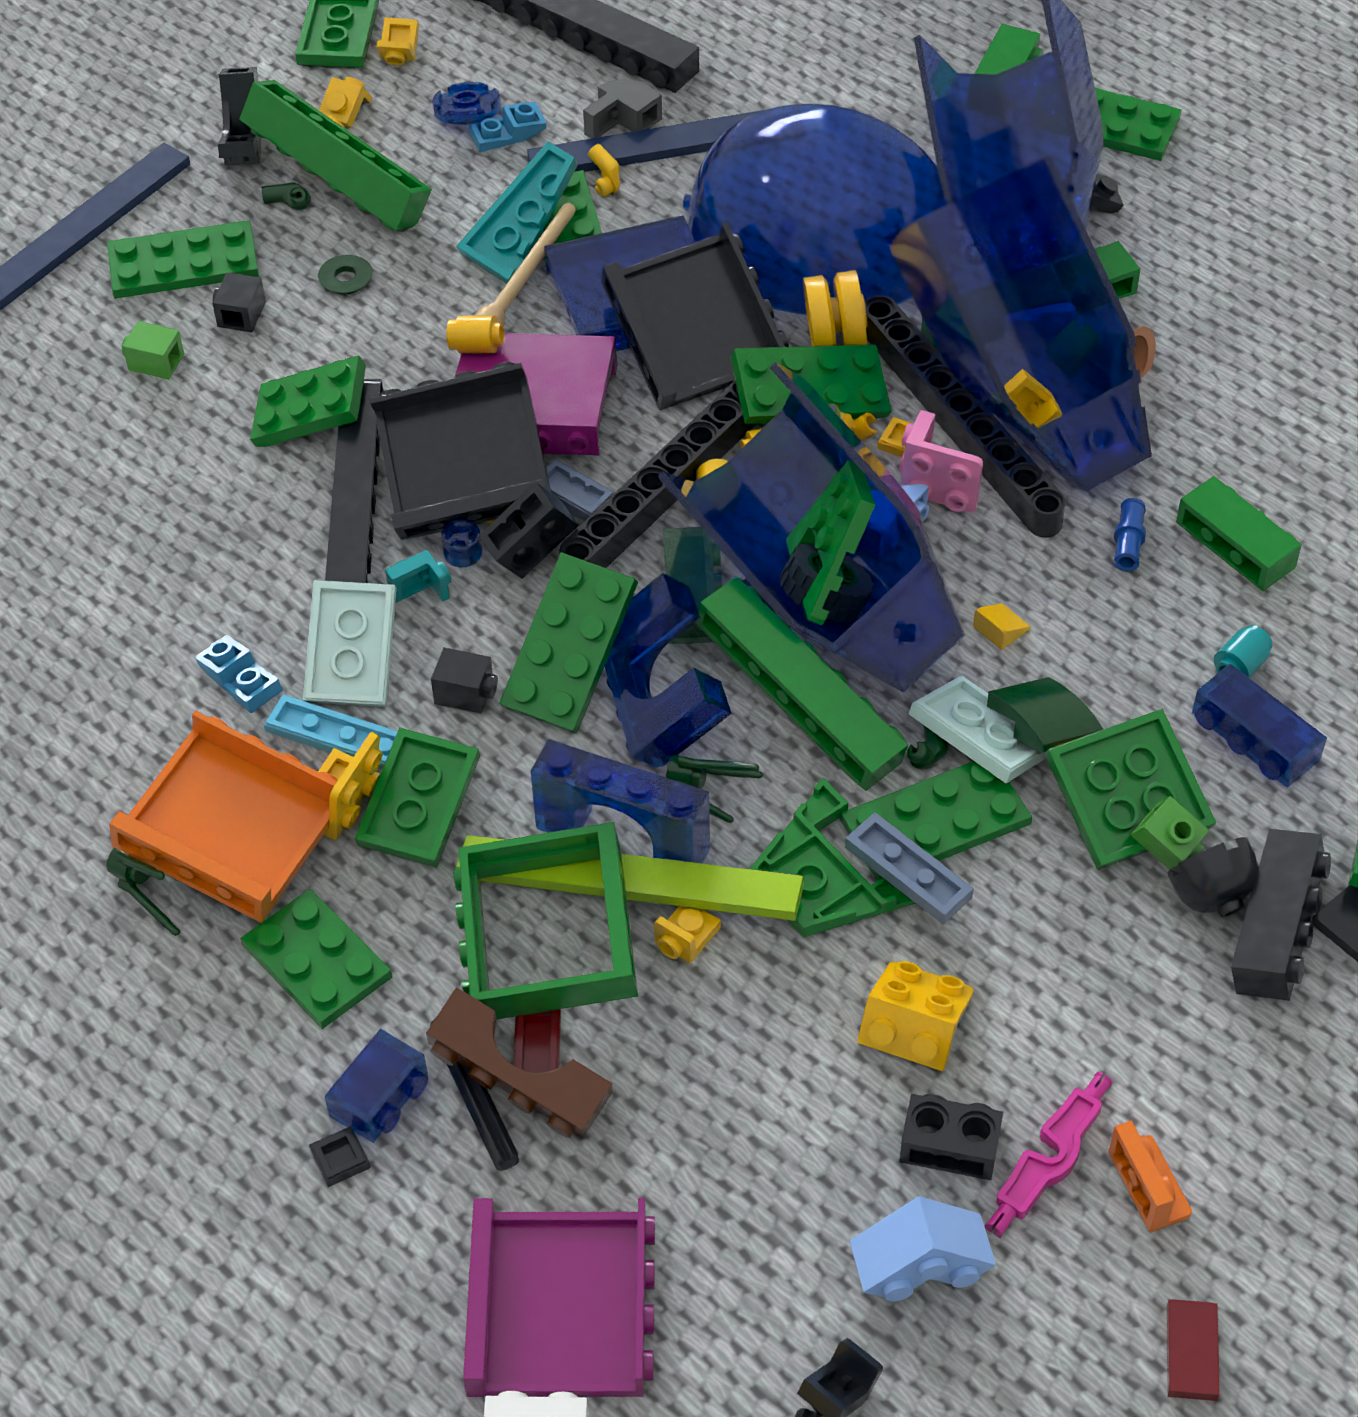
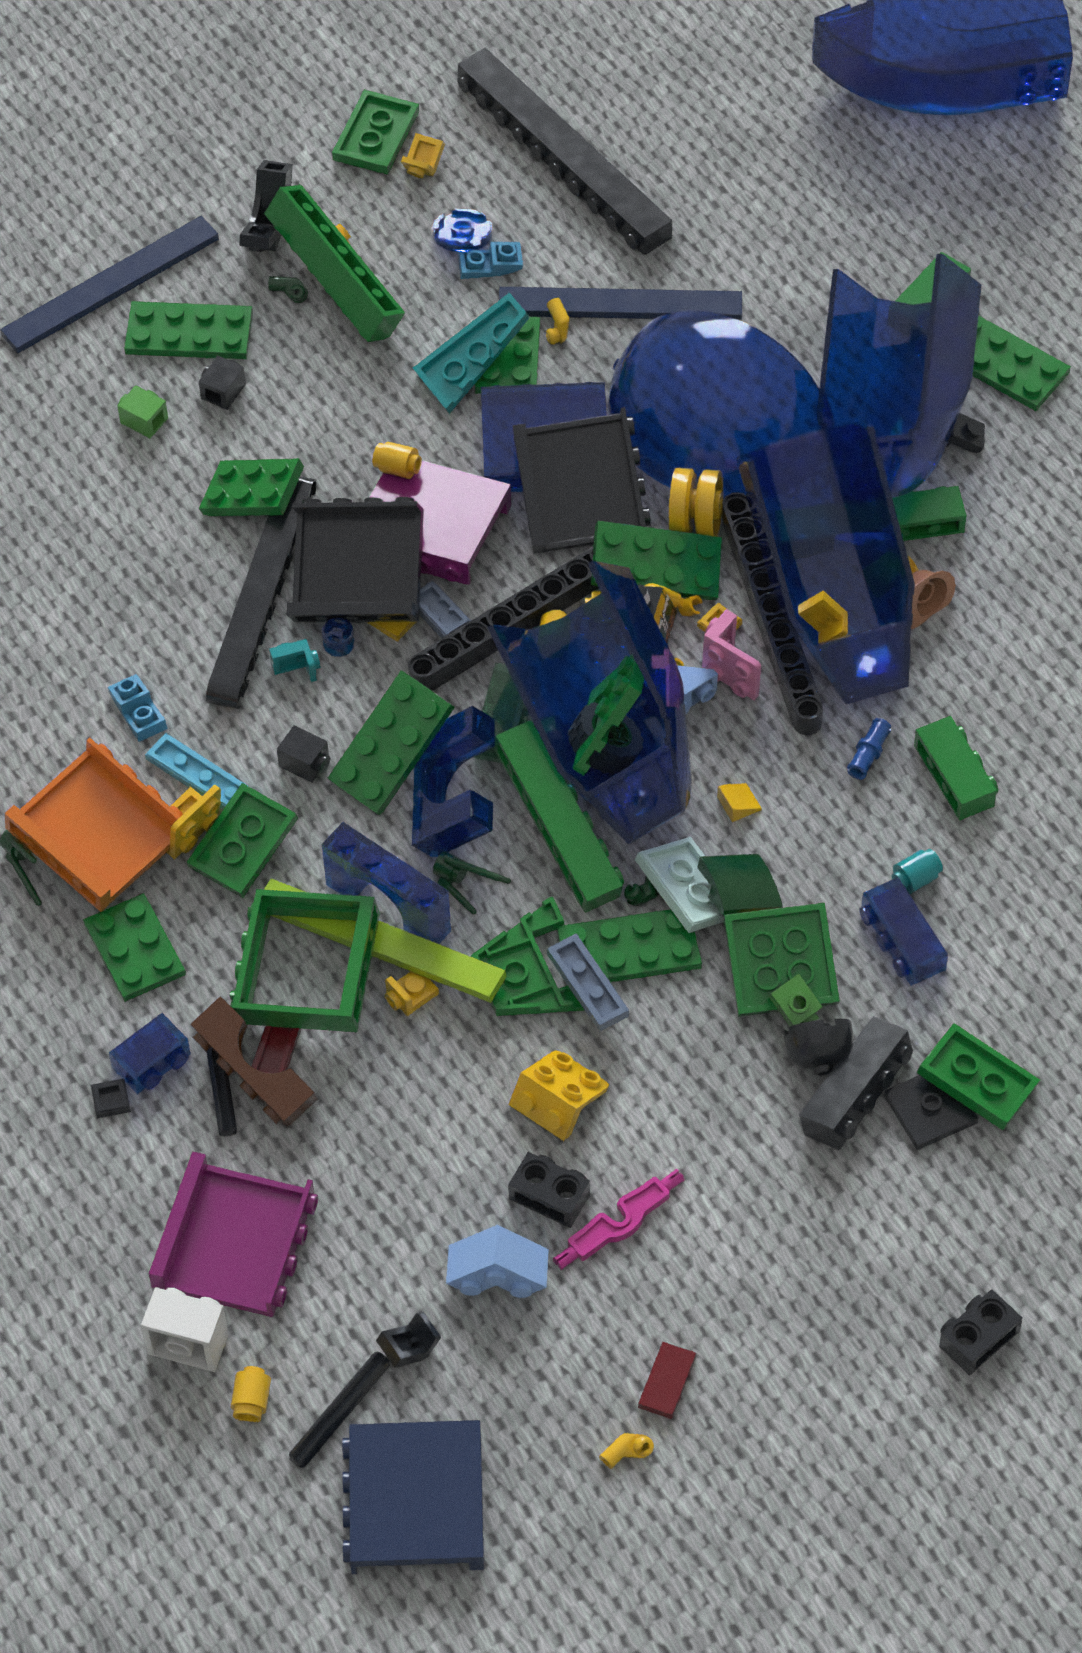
camera: 15 degrees right, 5 degrees up
(344, 99) = (360, 206): yellow bracket -> none
(345, 263) = (316, 362): dark green piece -> none
(349, 643) = (225, 704): light aqua tile -> none
(528, 265) = (424, 438): tan piece -> none
(528, 530) = (389, 640): black brick -> none
(625, 104) = (591, 259): dark grey brick -> none
(1148, 1178) = (682, 1253): orange bracket -> none

